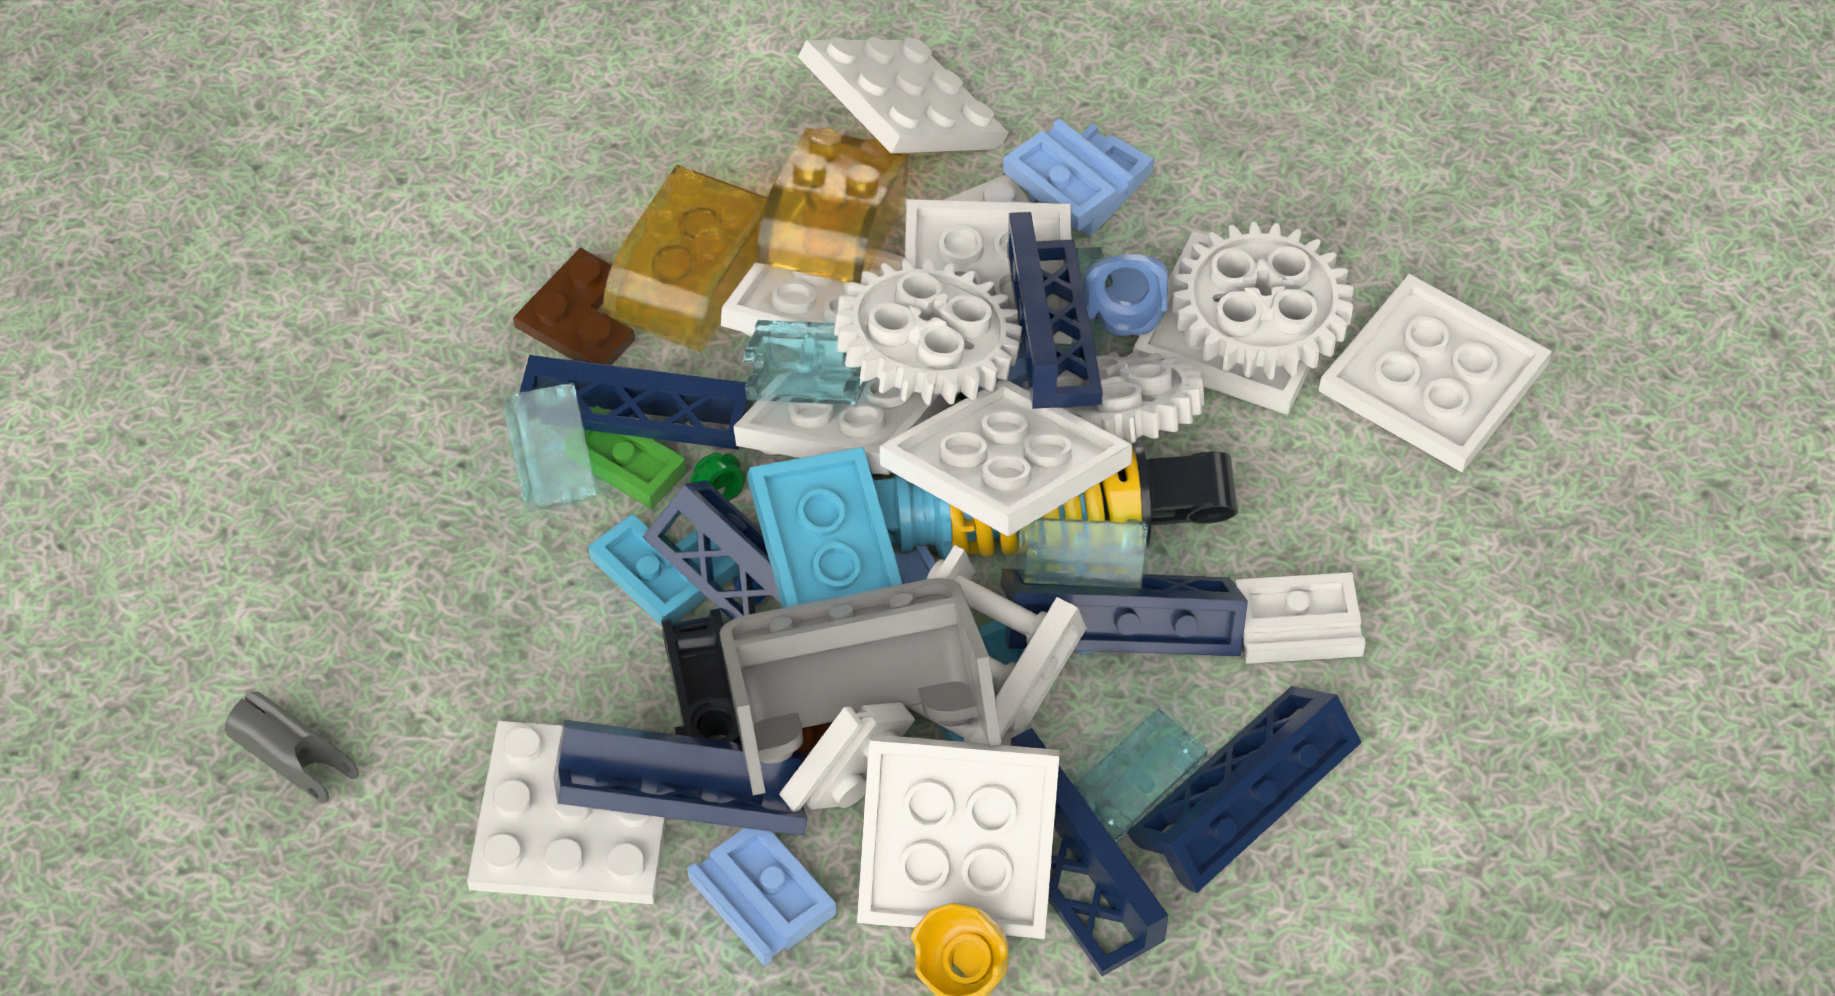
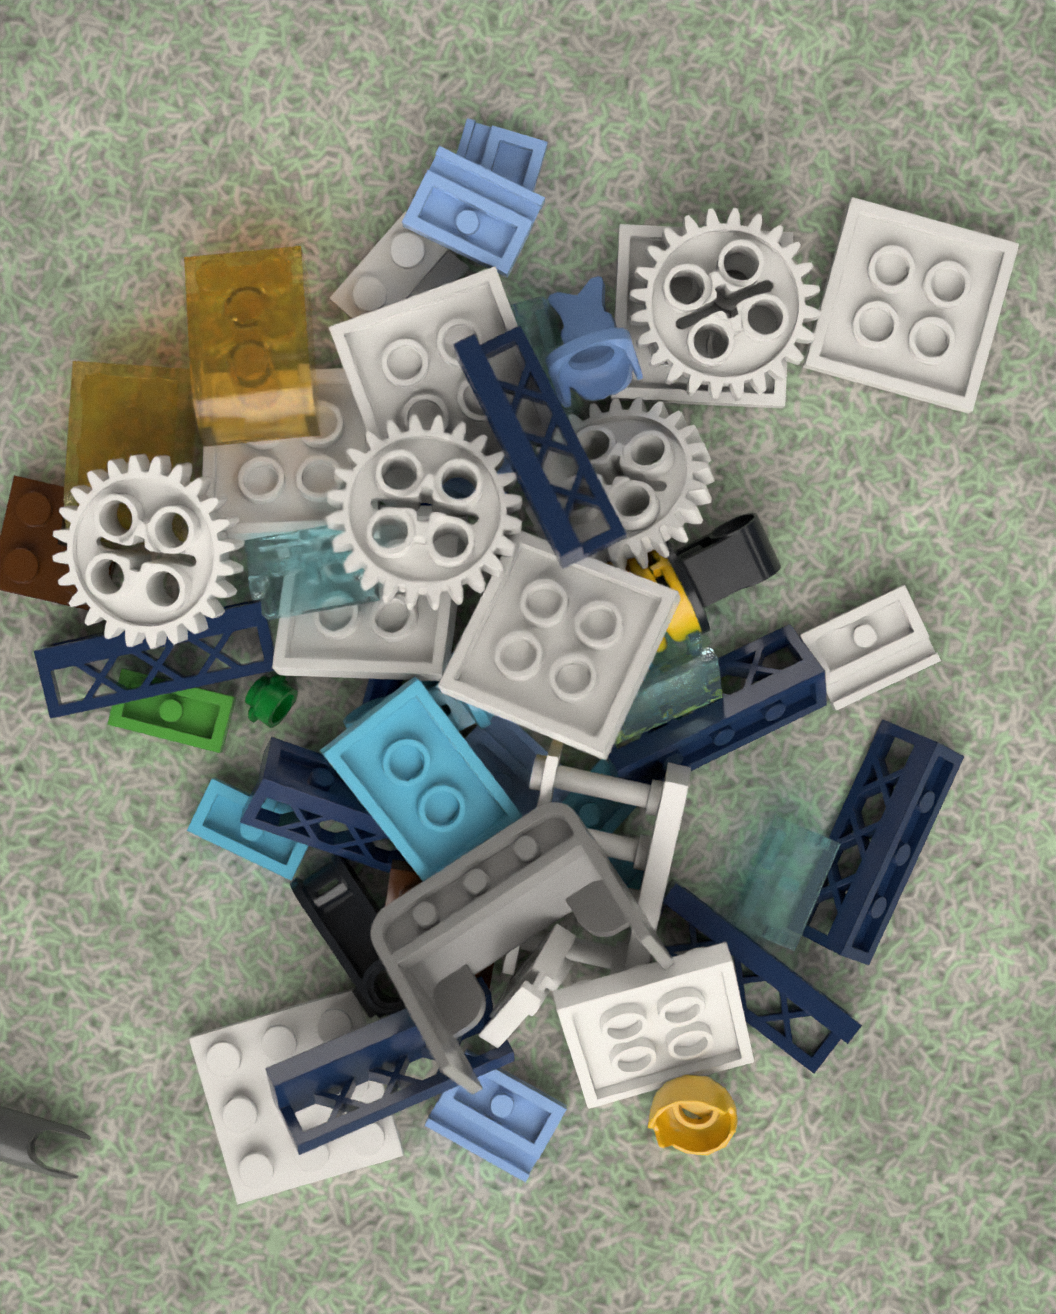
camera: 20 degrees left, 35 degrees up
(549, 447) = (103, 747): clear light blue hinge -> none
(670, 299) = (154, 499): none -> white gear
(903, 95) = (261, 168): white plate -> none

